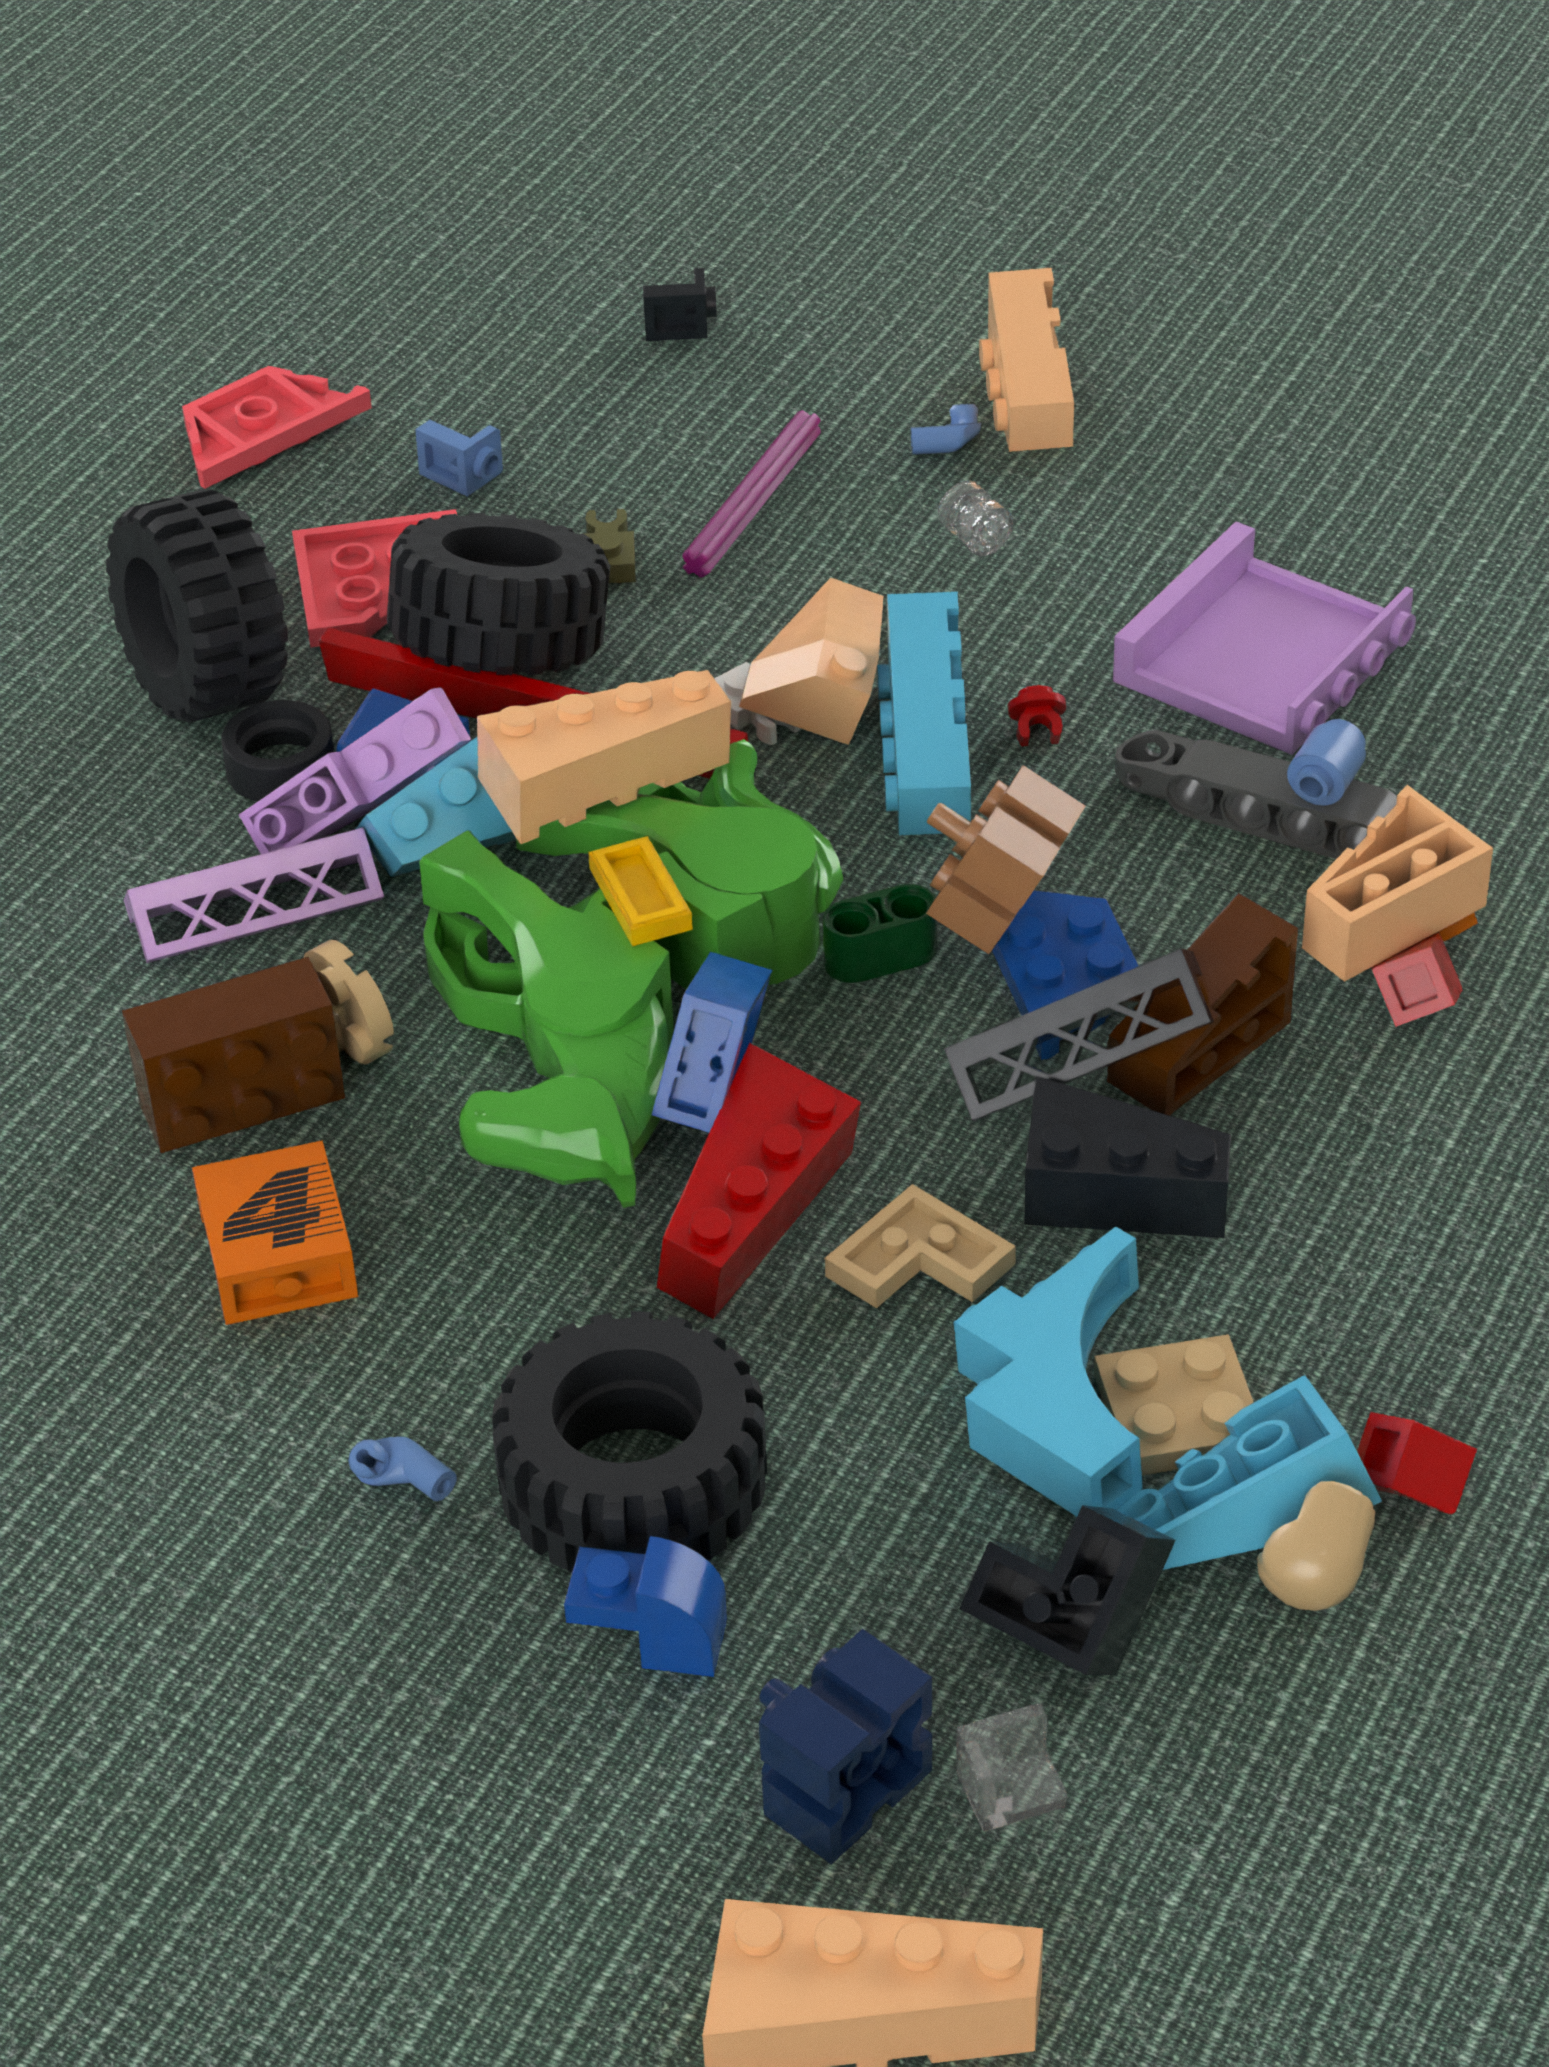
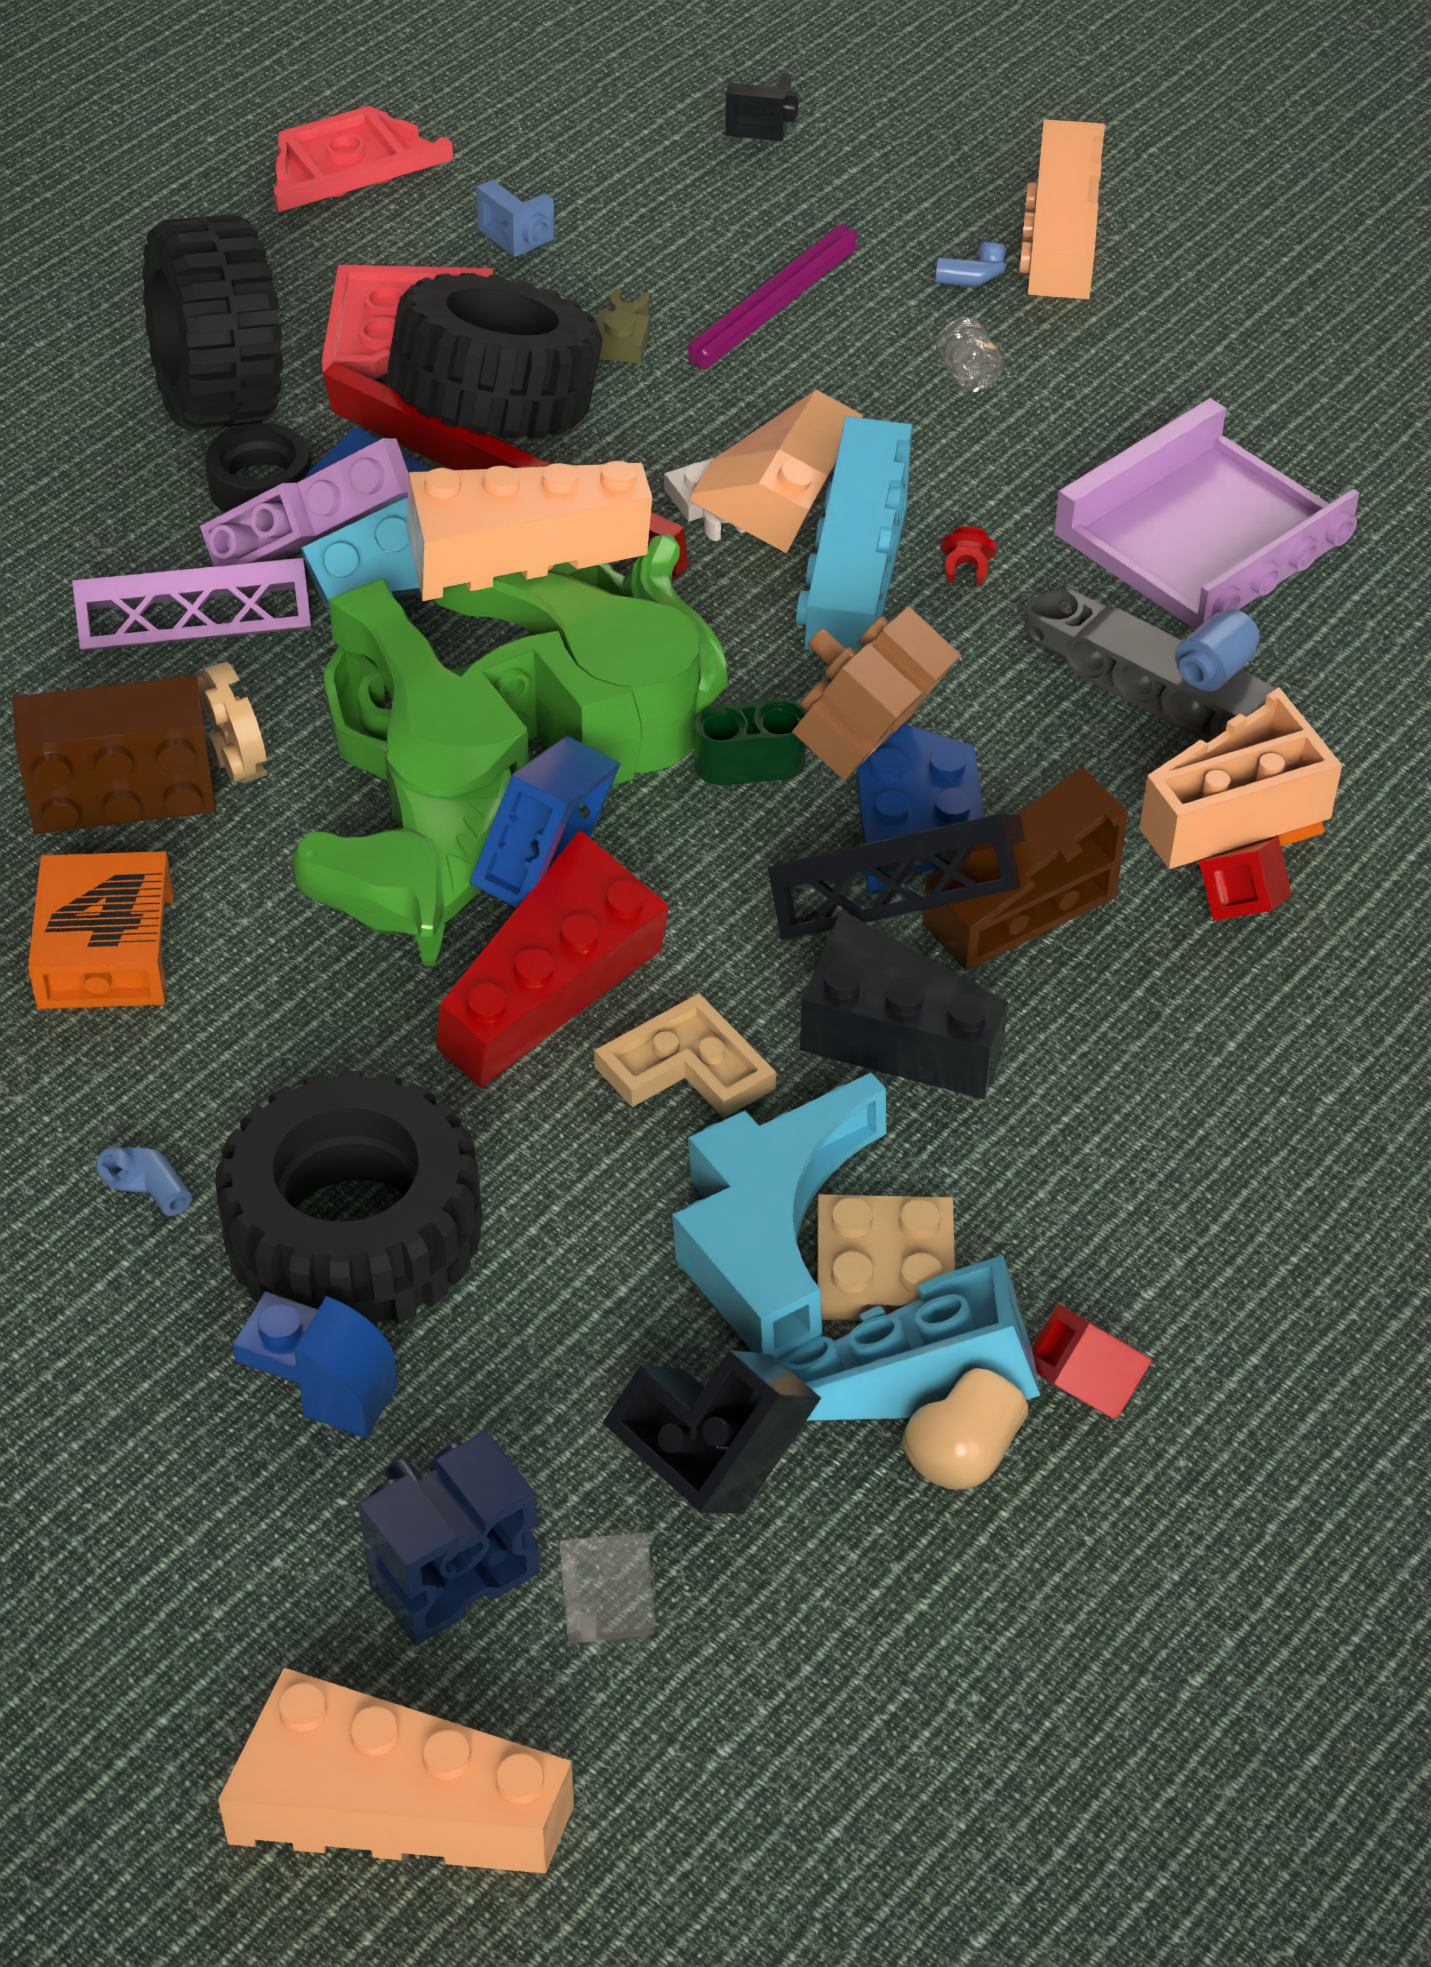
camera: 10 degrees right, 5 degrees up
(640, 891) = (518, 665): yellow tile -> none

